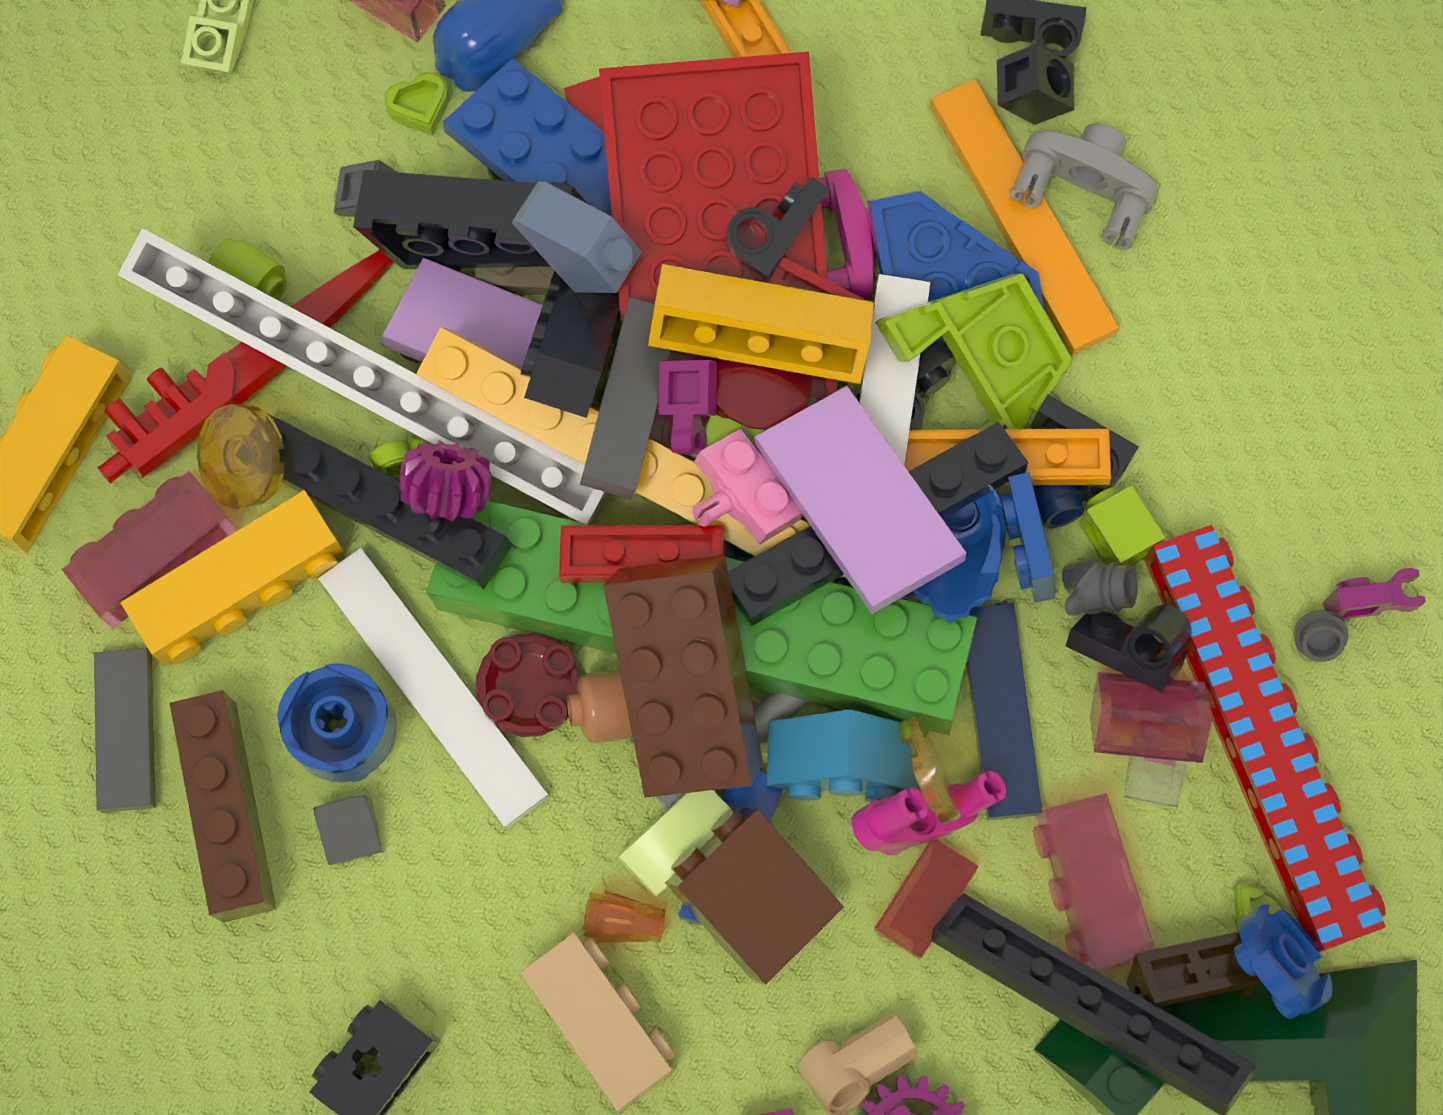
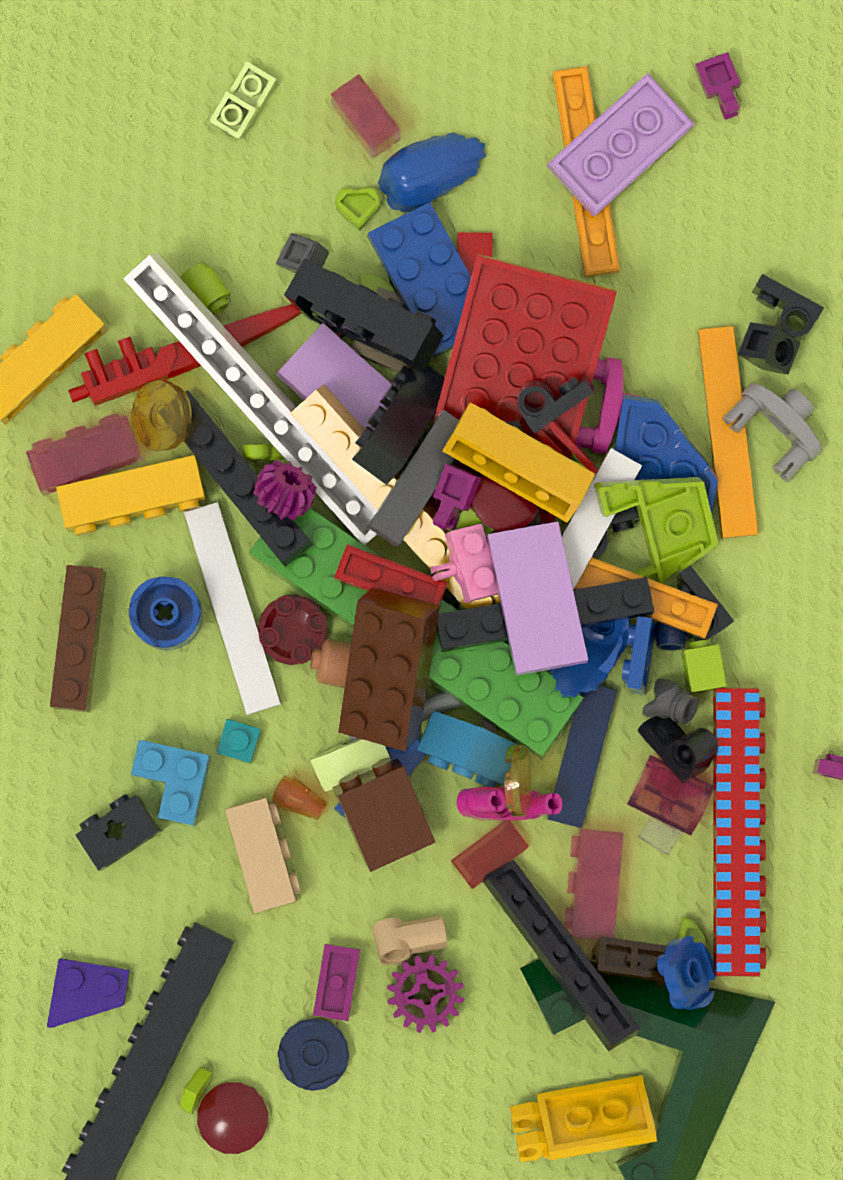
camera: 15 degrees right, 10 degrees up
(124, 730) = (31, 565): dark grey tile -> none
(348, 829) = (149, 680): dark grey slope -> none
(439, 944) = (184, 777): none -> dark azure brick
(506, 869) = (238, 741): none -> teal plate
(576, 240) = (422, 365): sand blue slope -> none
(1321, 635) = (801, 782): dark grey plate -> none

